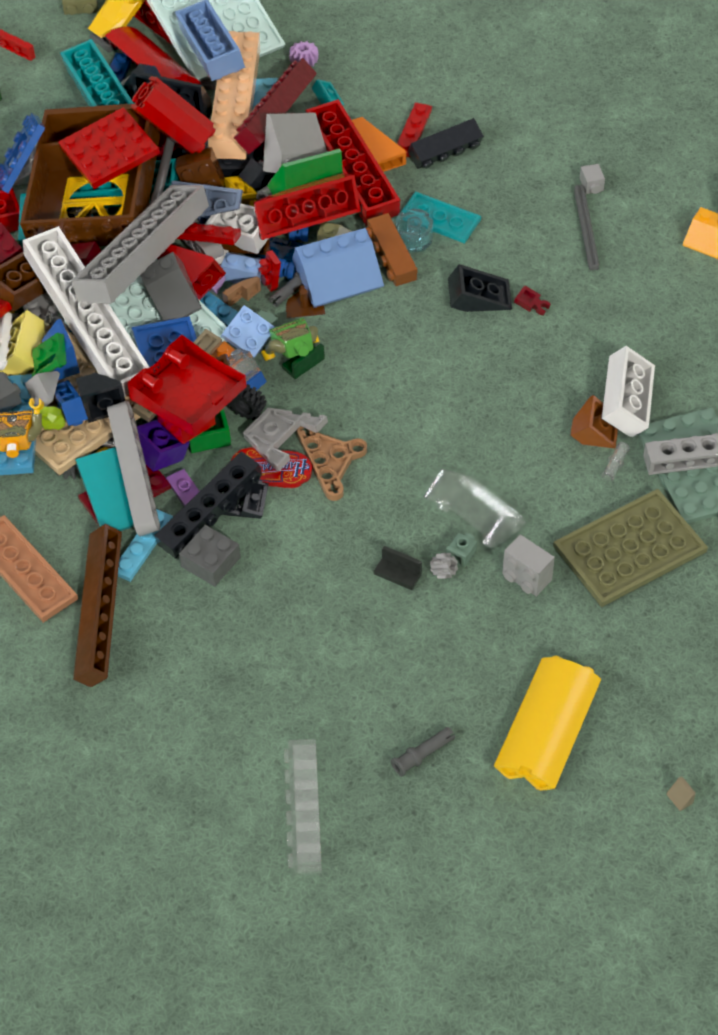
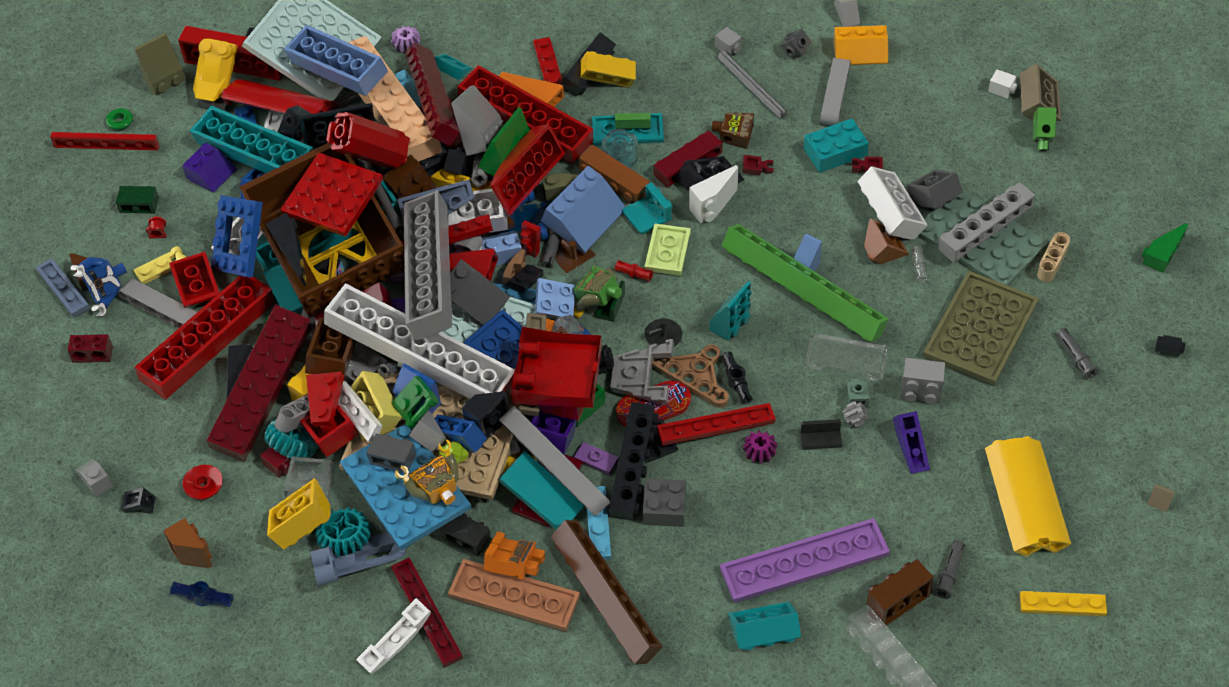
camera: 30 degrees left, 0 degrees up
(19, 16) = (119, 113): none -> green piece
(22, 495) = (467, 534): none -> pearl dark grey brick
(43, 533) = (513, 557): none -> orange hips
(44, 172) = (287, 238): none -> black slope
(56, 90) = (208, 167): none -> dark purple slope
(212, 708) = (765, 625): none -> teal slope
(252, 301) = (525, 278): none -> black plate
(296, 671) = (804, 560): none -> medium lavender plate
(310, 510) = (715, 424): none -> red plate
(333, 407) = (662, 330): none -> pearl dark grey shield
(334, 550) = (760, 446): none -> magenta gear
(345, 342) = (633, 270): none -> red pin
(351, 744) = (900, 591): none -> reddish brown brick
(361, 479) = (738, 384): none -> black pin
(390, 338) = (667, 249): none -> yellowish green plate
(399, 297) = (649, 210): none -> teal bracket
(399, 419) = (732, 313): none -> teal slope
(447, 210) = (632, 120): none -> bright green slope
(456, 154) = (608, 69): none -> yellow brick
(468, 307) = (712, 194): none -> white slope
(477, 617) = (911, 441): none -> dark purple slope
(490, 261) = (702, 147): none -> dark red brick
(490, 426) = (805, 283): none -> bright green brick
(507, 840) = (1063, 603): none -> yellow plate
(509, 403) = (809, 252): none -> medium blue slope
(537, 259) = (735, 129): none -> reddish brown torso
(619, 316) = (835, 145): none -> teal brick
(641, 347) = (864, 165): none -> dark red plate
(654, 207) = (796, 43): none -> dark grey brick
(658, 267) = (835, 91): none -> light grey beam
(681, 397) = (935, 188): none -> dark grey brick
(705, 625) = (1081, 359): none -> dark grey pin

